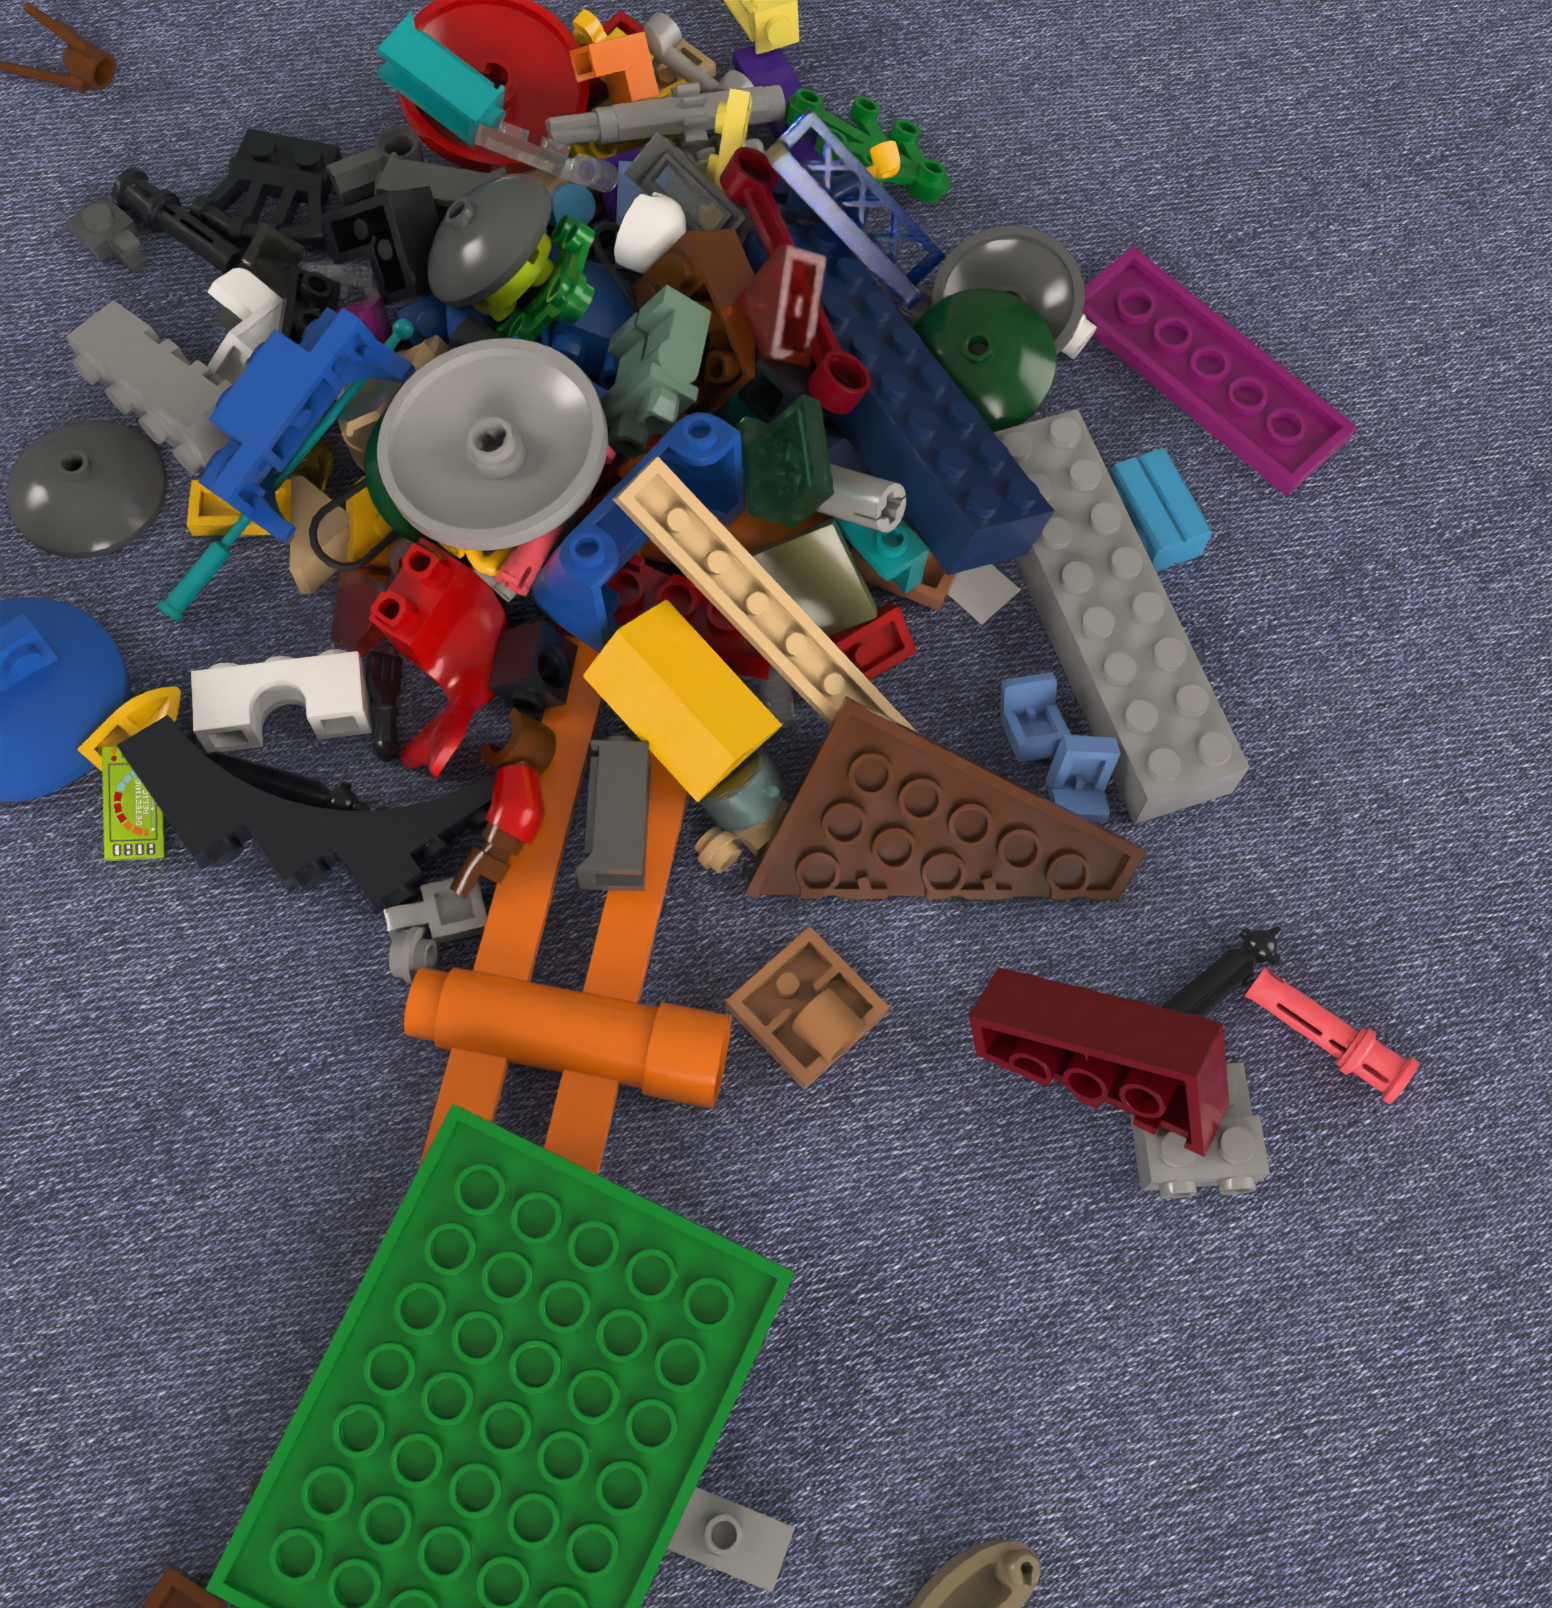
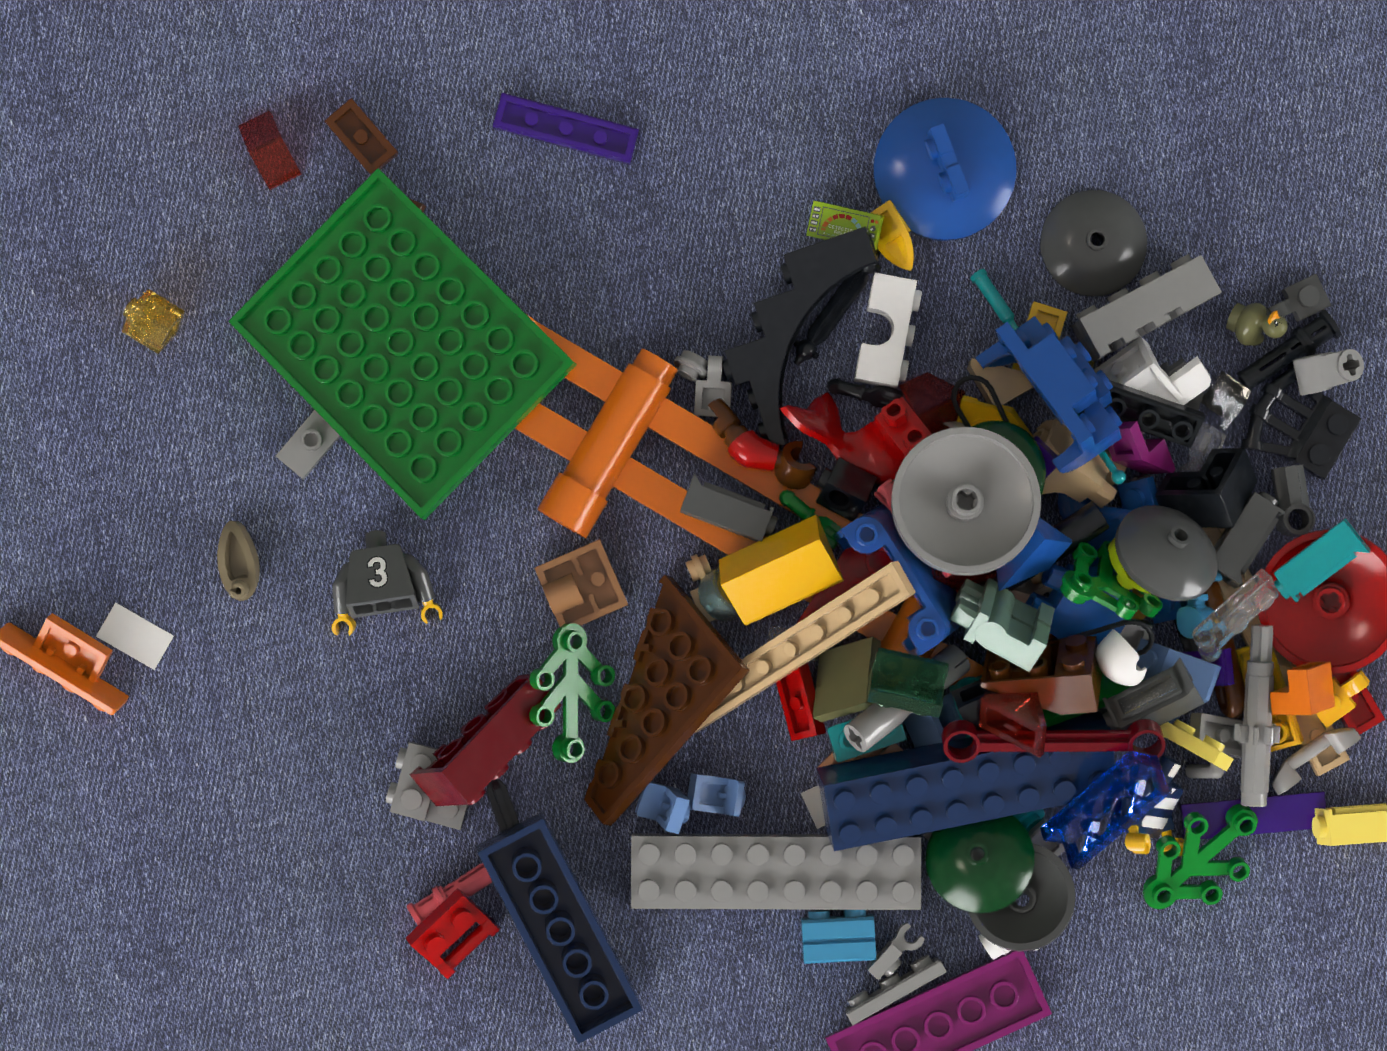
camera: 115 degrees right, 20 degrees up
(69, 1289) = (566, 128): none -> dark purple tile
(149, 270) = (1250, 322): none -> olive animal
(193, 164) = (1326, 370): none -> light grey piece
(587, 709) = (802, 510): none -> green piece
(907, 982) = (569, 688): none -> green plant
(919, 1323) = (380, 583): none -> dark grey torso
(1141, 439) = (887, 958): none -> light grey plate
(1190, 426) = (894, 988): none -> light grey tile
(1318, 860) = (559, 927): none -> dark blue brick
(1400, 1018) = (446, 926): none -> red plate

